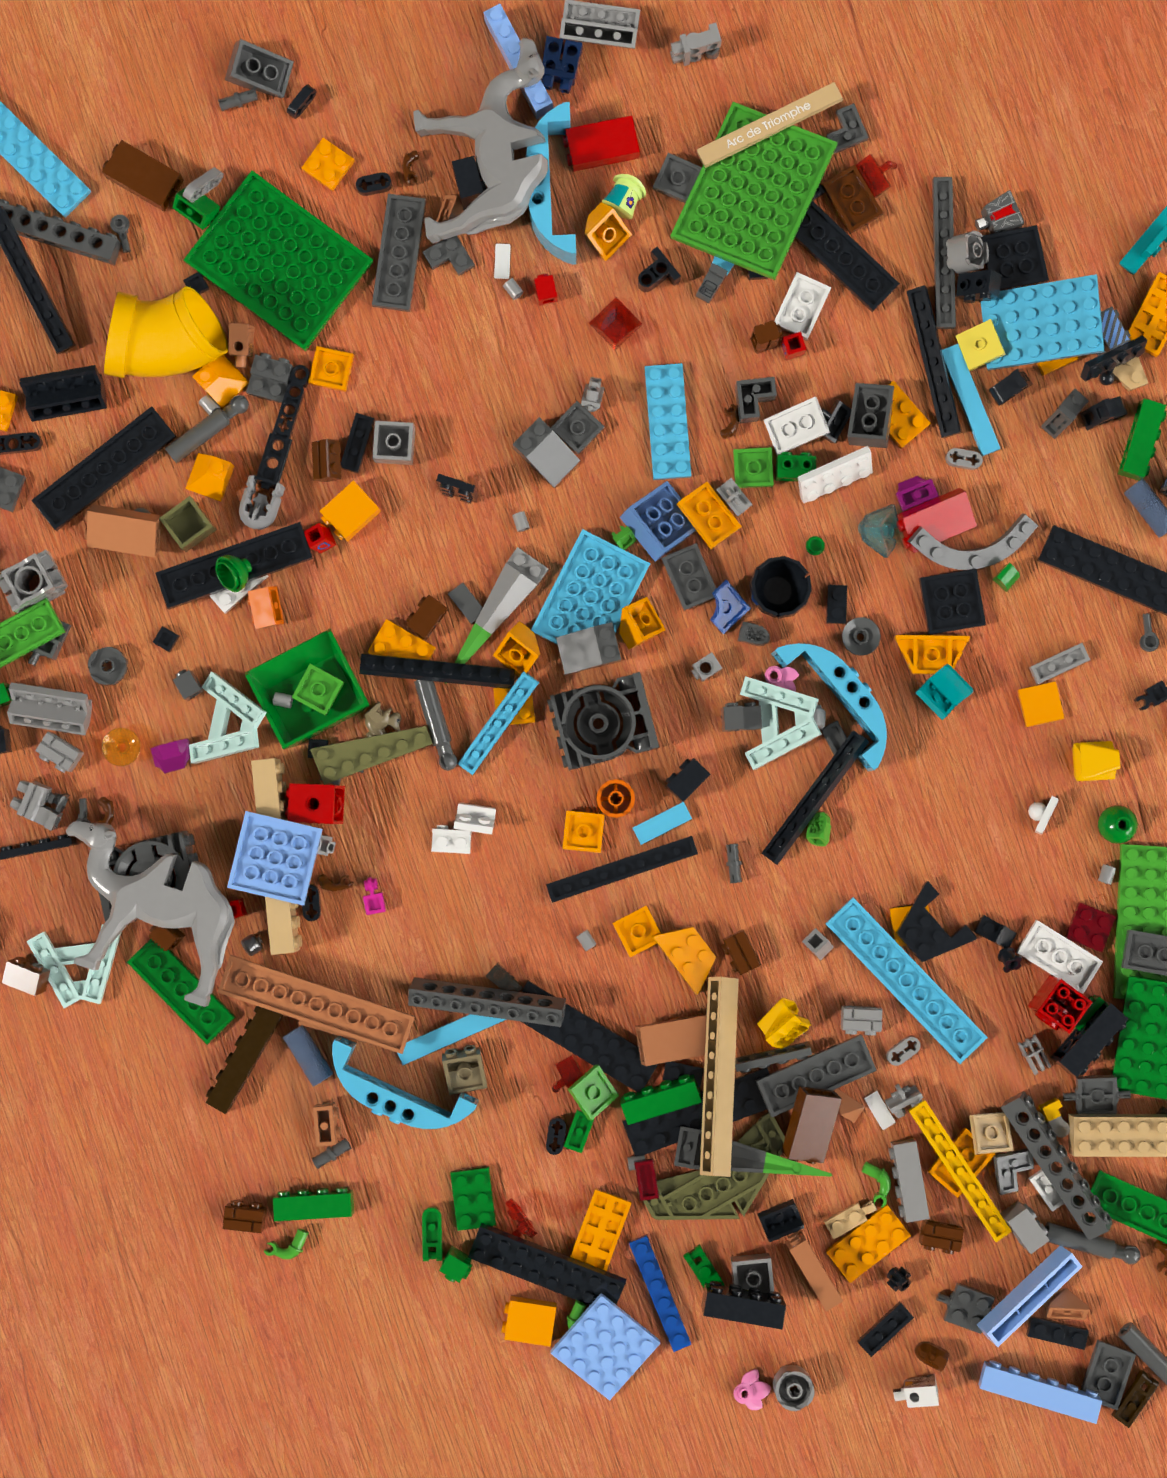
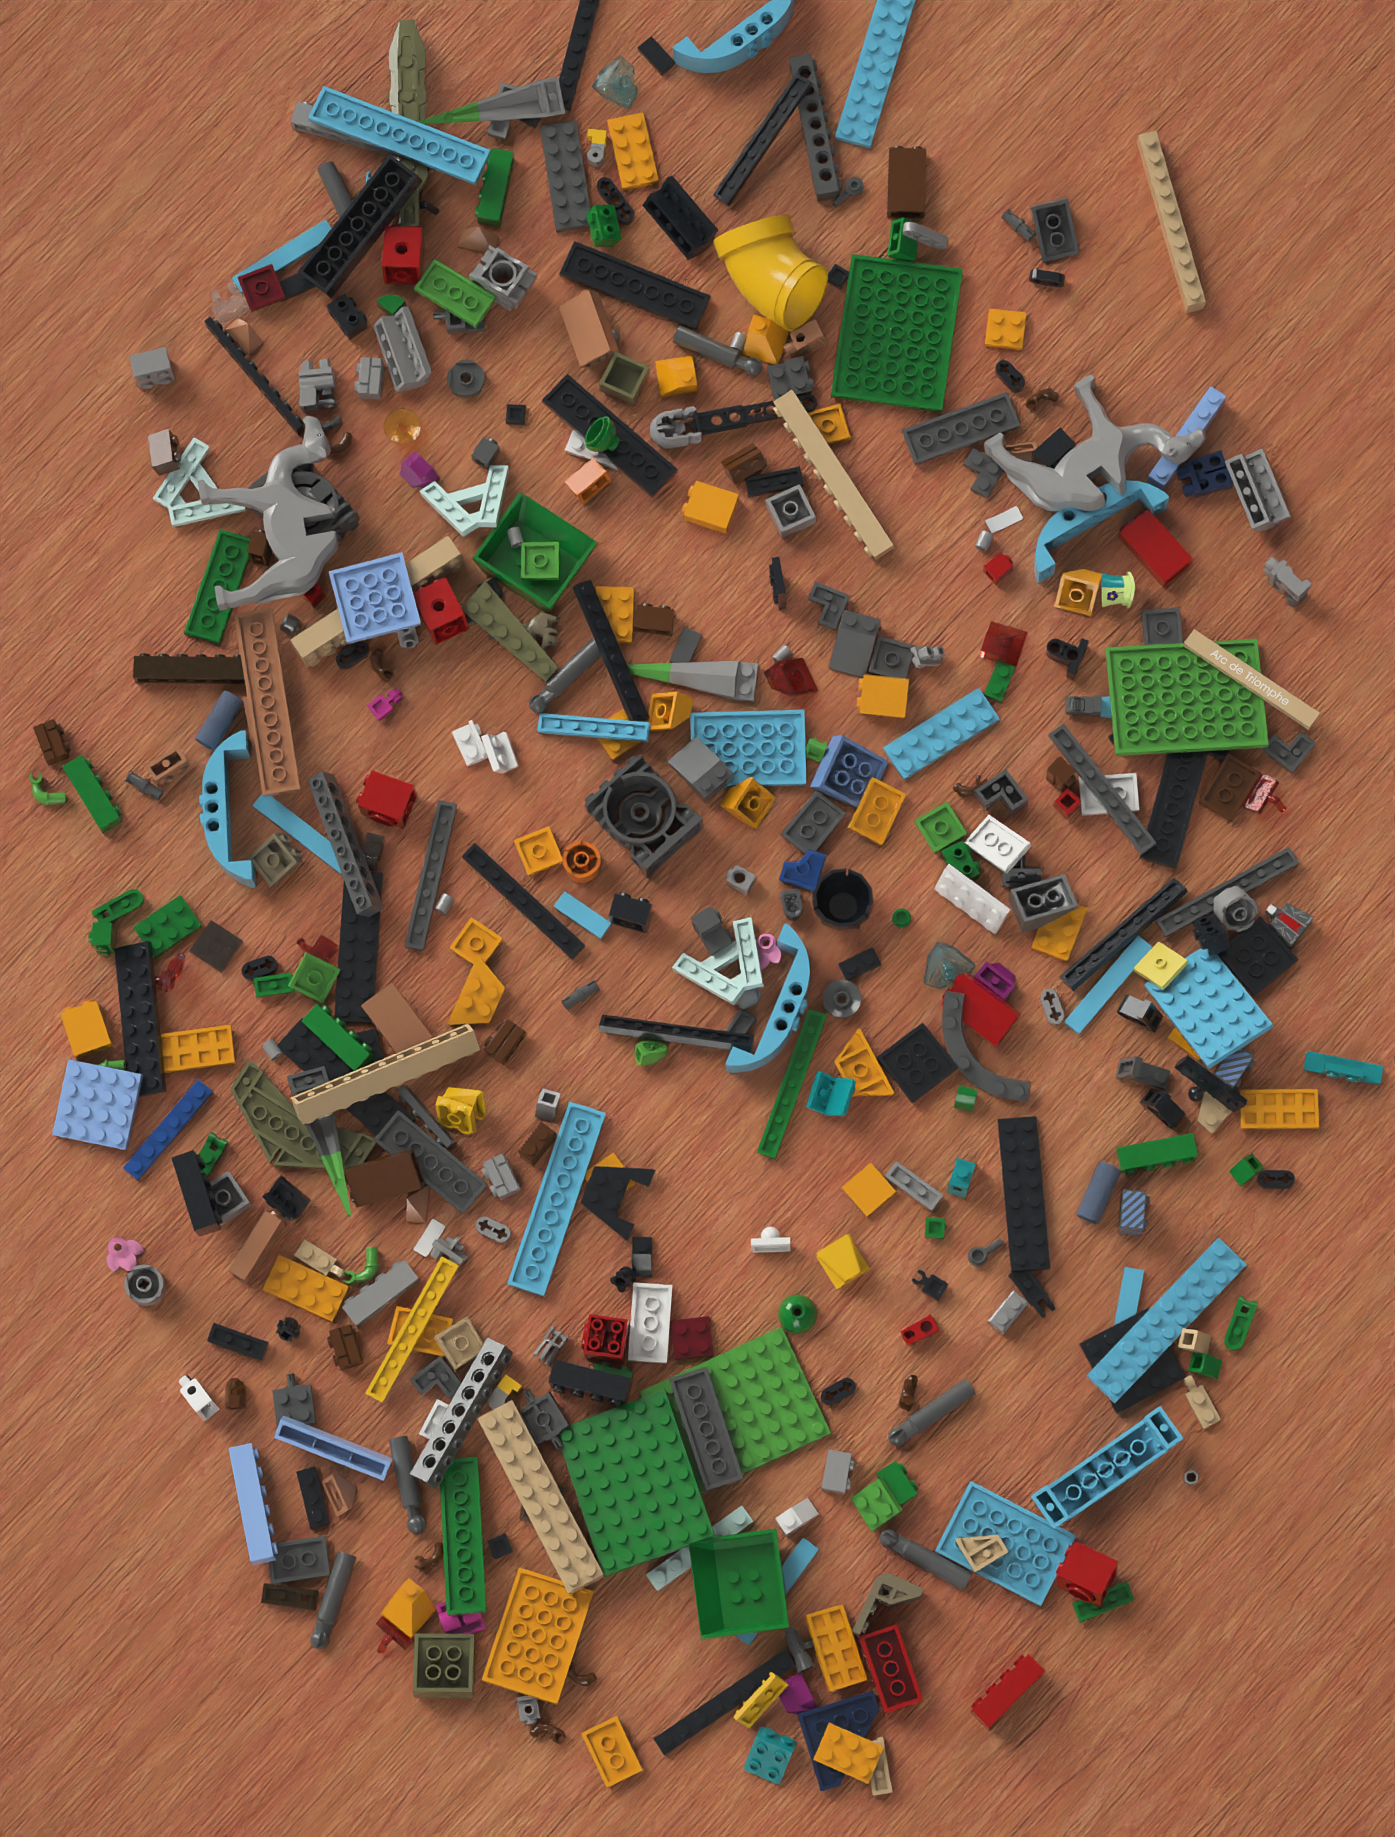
camera: 70 degrees right, 10 degrees down
(32, 465) = (604, 225): none -> green brick
(319, 538) = (673, 493): red brick -> none
(381, 386) = (833, 474): none -> tan brick
(465, 944) = (386, 799): none -> red brick
(497, 450) = (833, 603): none -> dark grey plate
(514, 1164) = (216, 946): none -> clear smoke plate
(548, 525) = (791, 678): none -> clear red slope
(554, 939) = (430, 875): none -> dark grey plate
(608, 452) = (883, 695): none -> light orange brick
(646, 1179) = (262, 1062): dark red tile -> none
(647, 345) = (999, 681): none -> green plate
(734, 497) = (904, 824): light grey hips -> none
(798, 308) = (1102, 789): none -> dark grey plate
(849, 972) = (537, 1144): none -> reddish brown brick
(913, 721) = (791, 1084): none -> green plate
(1024, 1226) = (392, 1413): light grey brick -> none
(1074, 617) = (961, 1178): none -> teal torso
(1105, 665) = (934, 1228): none -> green plate
(1107, 874) = (747, 1327): light grey hinge -> none

